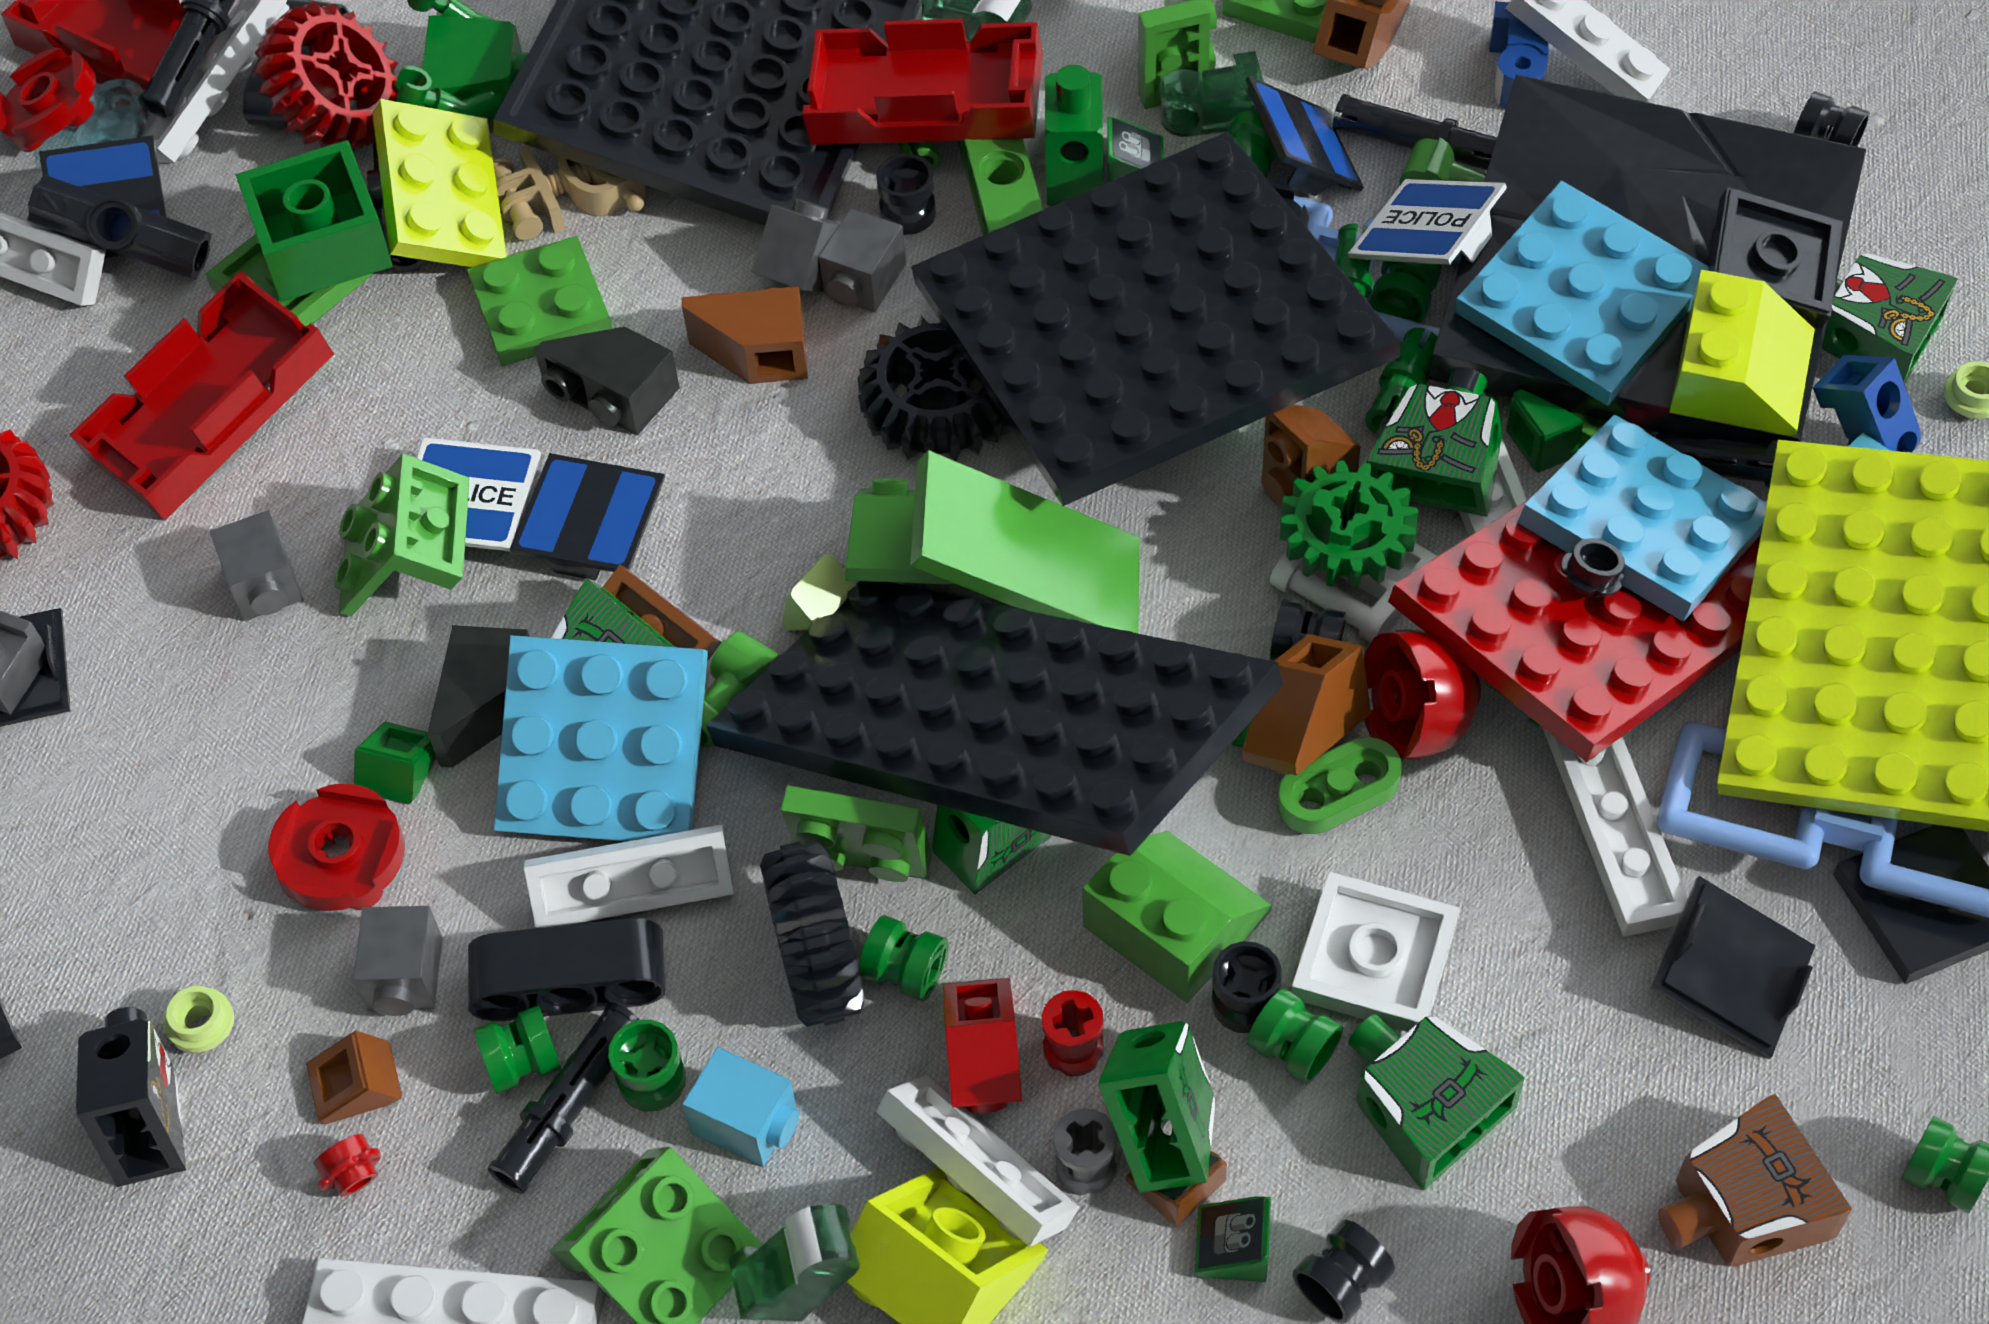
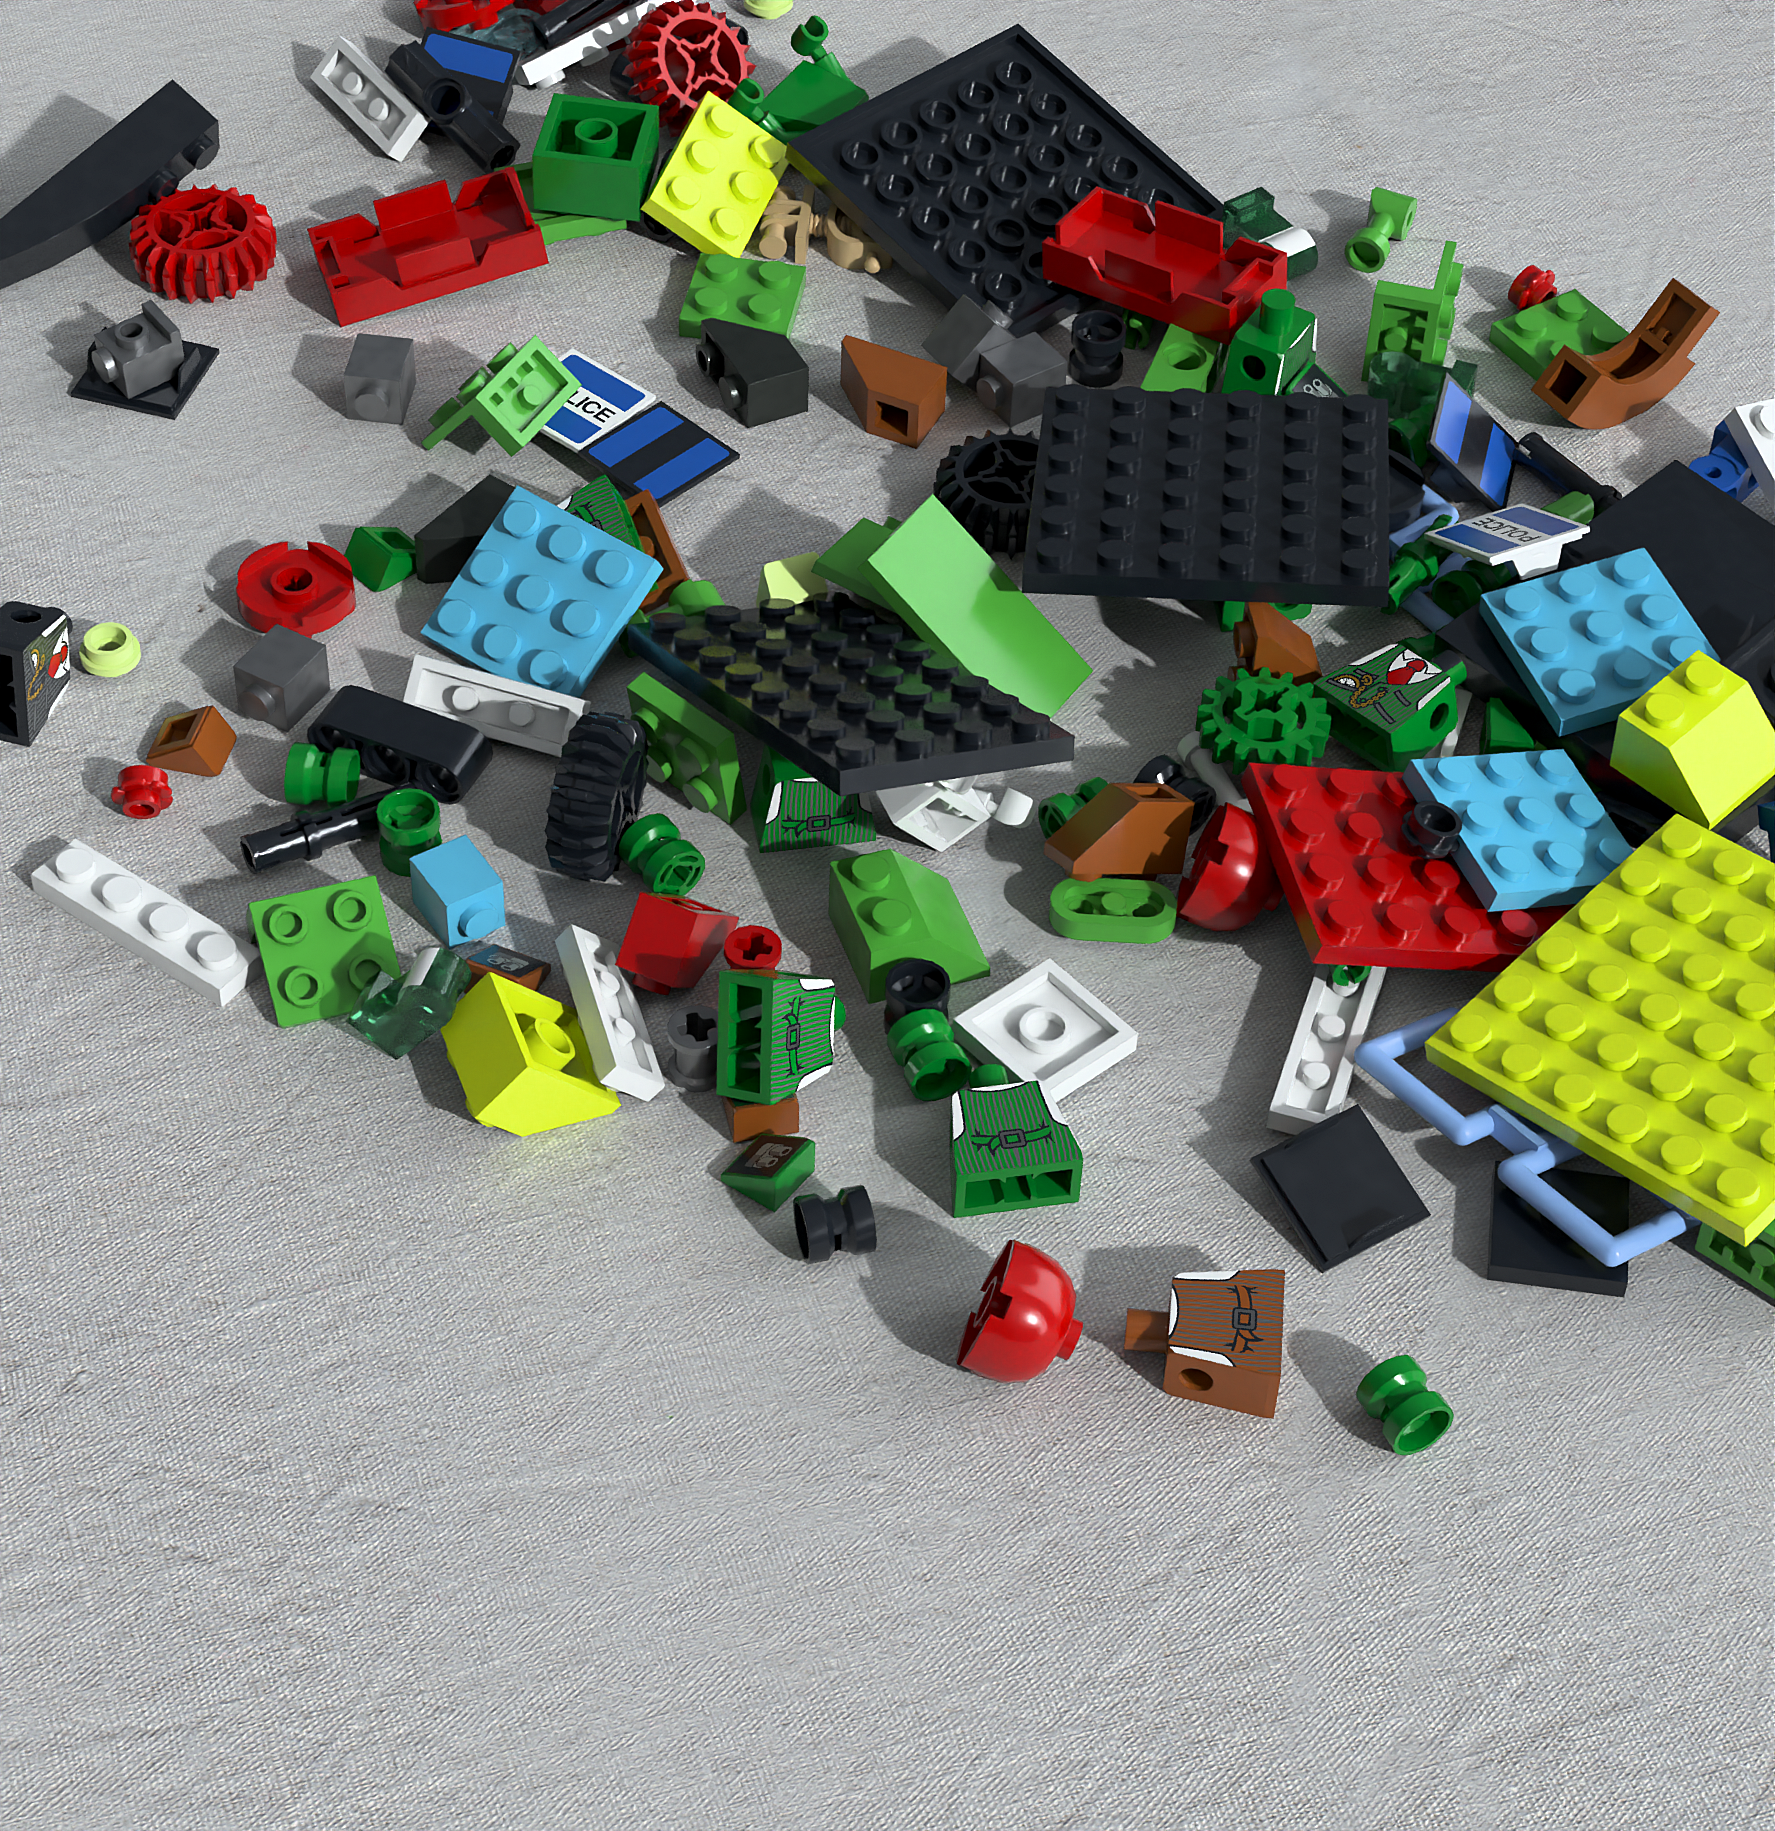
camera: 25 degrees right, 10 degrees down
(843, 1169) = (509, 965): none -> slope

